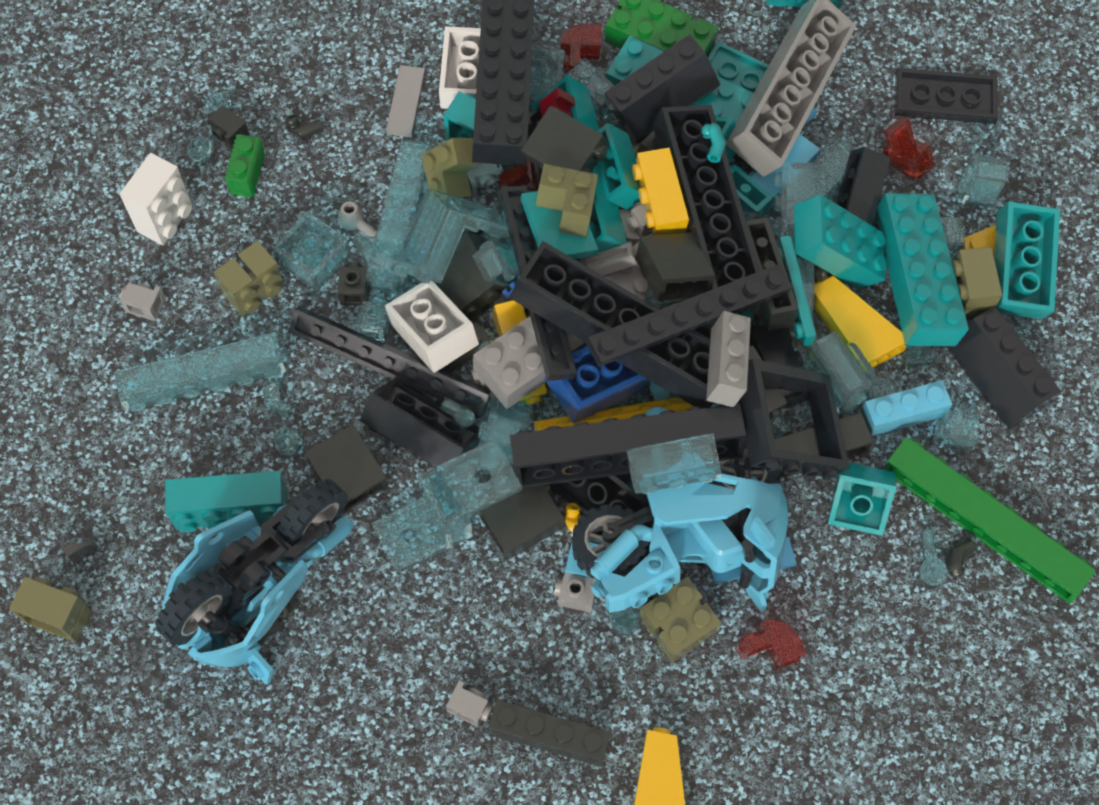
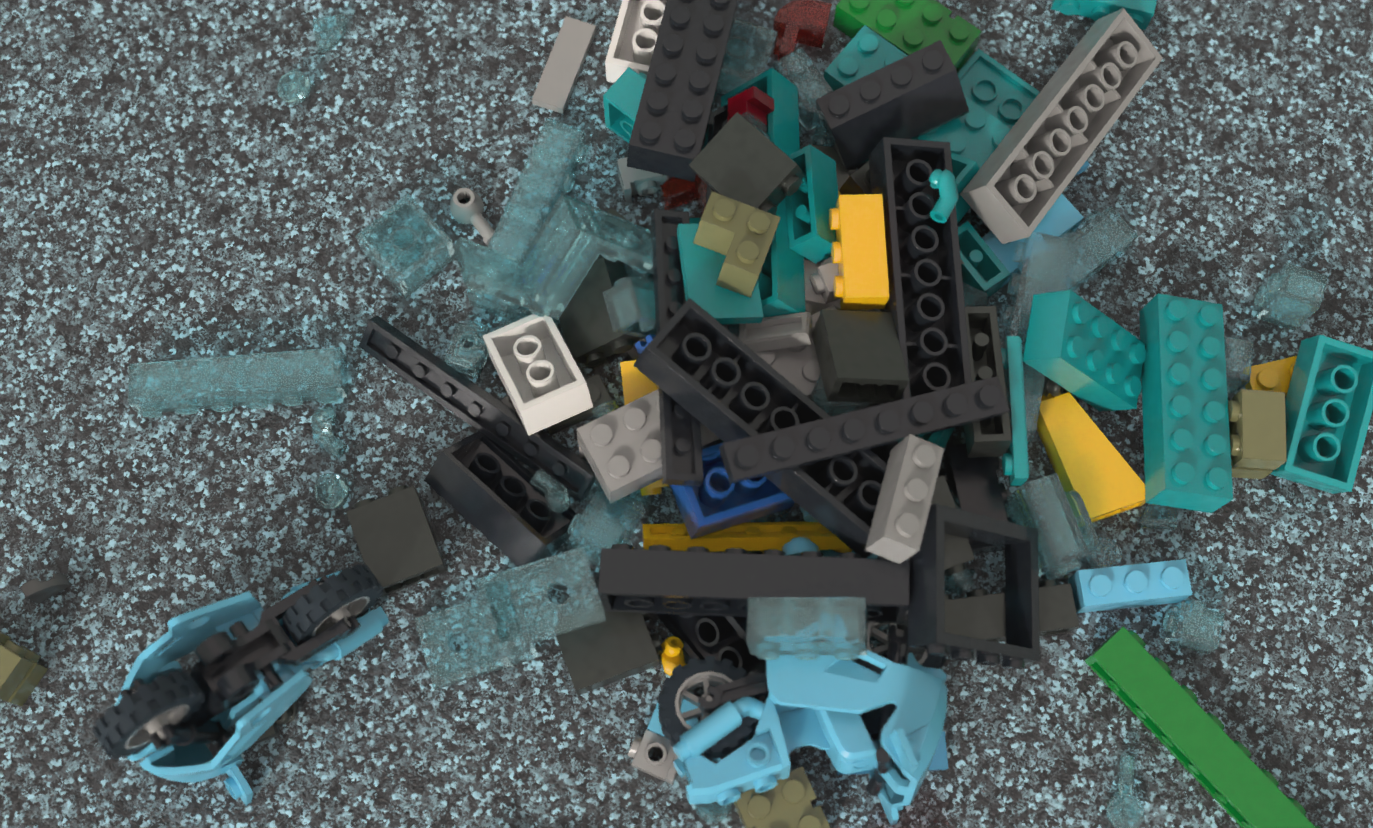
camera: 10 degrees right, 5 degrees up
(142, 300) = (184, 274): light grey brick -> none
(156, 199) = (221, 147): white brick -> none
(215, 499) = (234, 558): teal brick -> none
(227, 125) = (333, 64): pearl dark grey brick -> none
(244, 165) = (344, 118): green brick -> none
(247, 290) = (313, 289): olive piece -> none
(301, 129) = (425, 80): pearl dark grey arm -> none
(352, 284) = (449, 308): pearl dark grey brick -> none
(448, 167) = (597, 168): olive brick -> none
(862, 499) = (1051, 698): teal slope -> none
(863, 183) = (1130, 276): black brick -> none
(906, 153) = (1195, 239): clear red brick -> none
(946, 96) = (1263, 170): black tile -> none
(956, 555) = (1158, 796): pearl dark grey arm -> none
(1004, 369) = (1270, 554): black slope -> none

